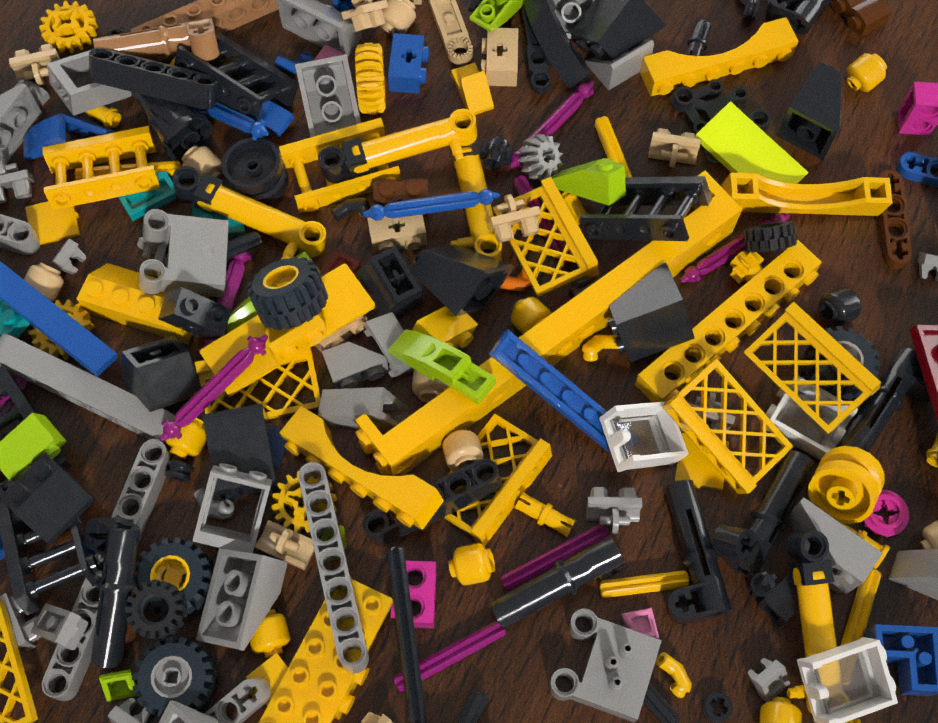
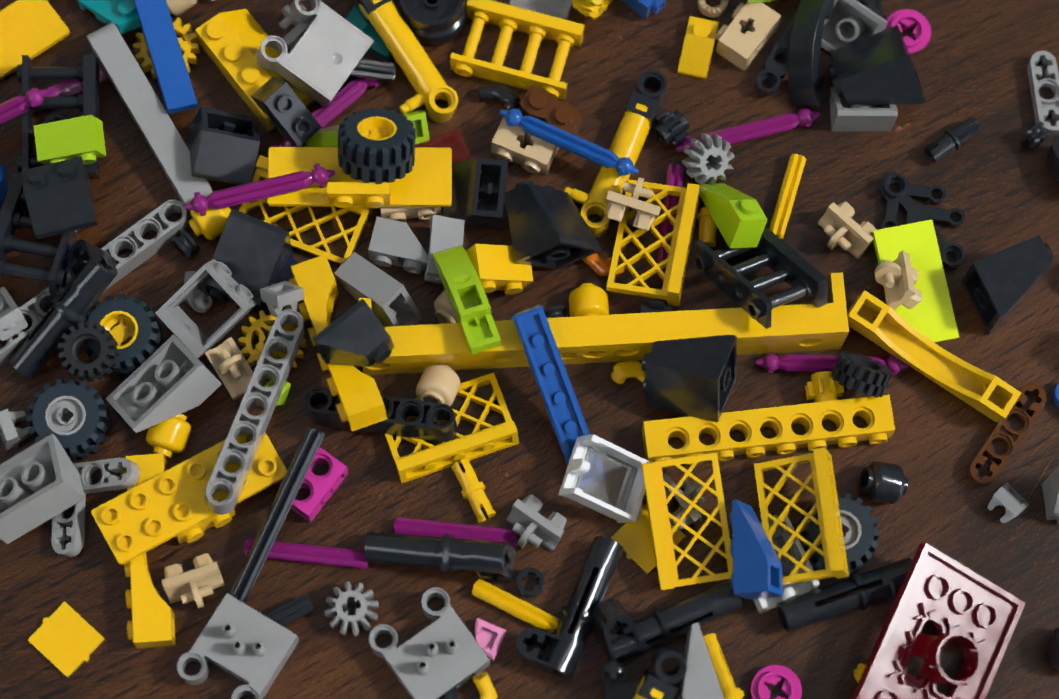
camera: 30 degrees right, 5 degrees up
(118, 685) = (19, 393): lime slope -> none
(288, 460) = (281, 295): none -> light grey tile
(361, 156) = (537, 53): yellow piece -> none
(379, 450) = (354, 339): none -> black slope
(472, 564) = (378, 490): yellow head -> none
(530, 676) = (341, 604): none -> light grey gear
(650, 559) = (537, 589): none -> black bush
(670, 70) = (901, 151): yellow arch -> none
(747, 154) = (899, 281): none -> tan hips
(810, 425) = (755, 562): none -> blue slope
(847, 484) = (751, 639): yellow wheel -> none

